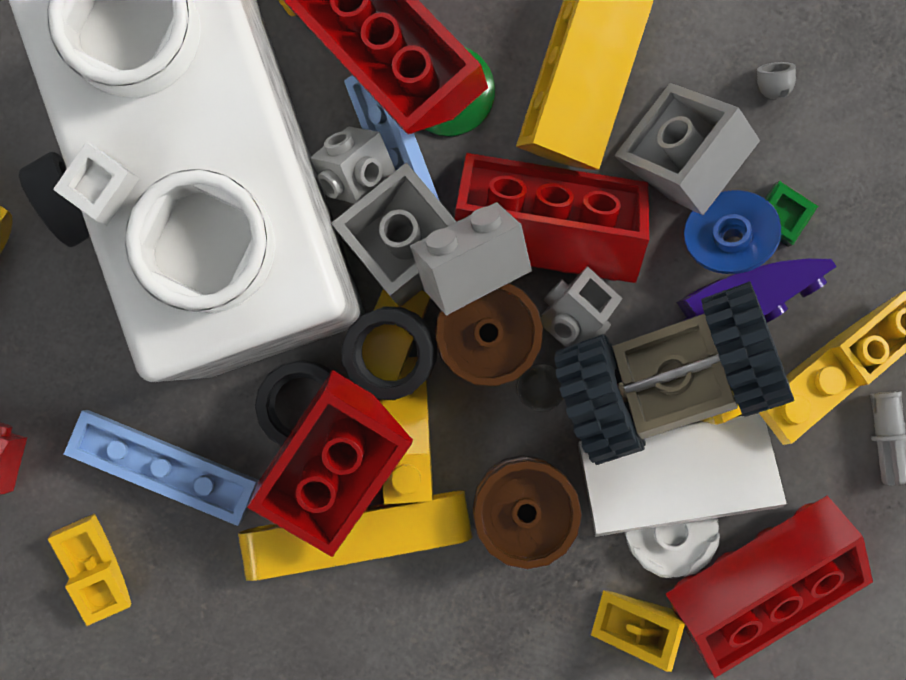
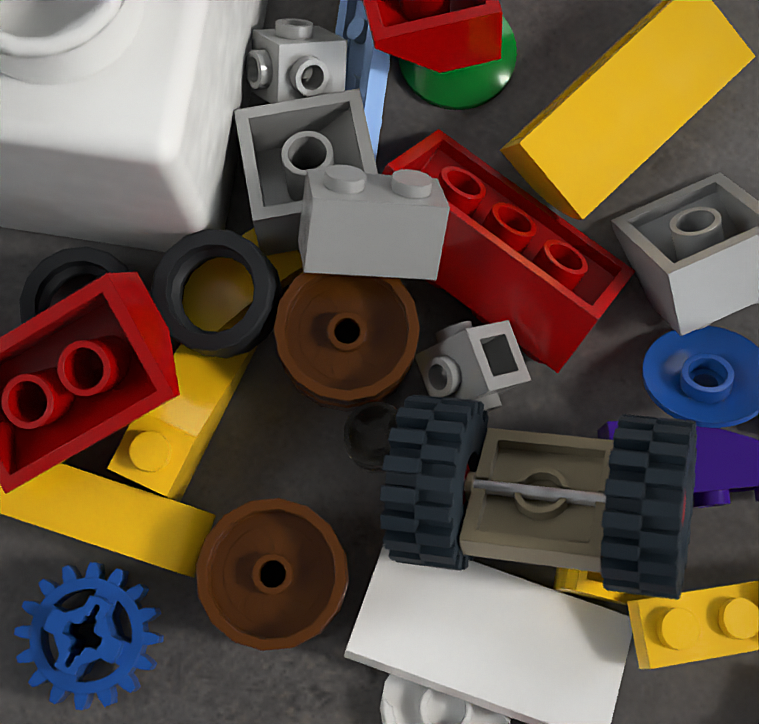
camera: 30 degrees right, 10 degrees down
(446, 609) = (64, 623): none -> blue gear

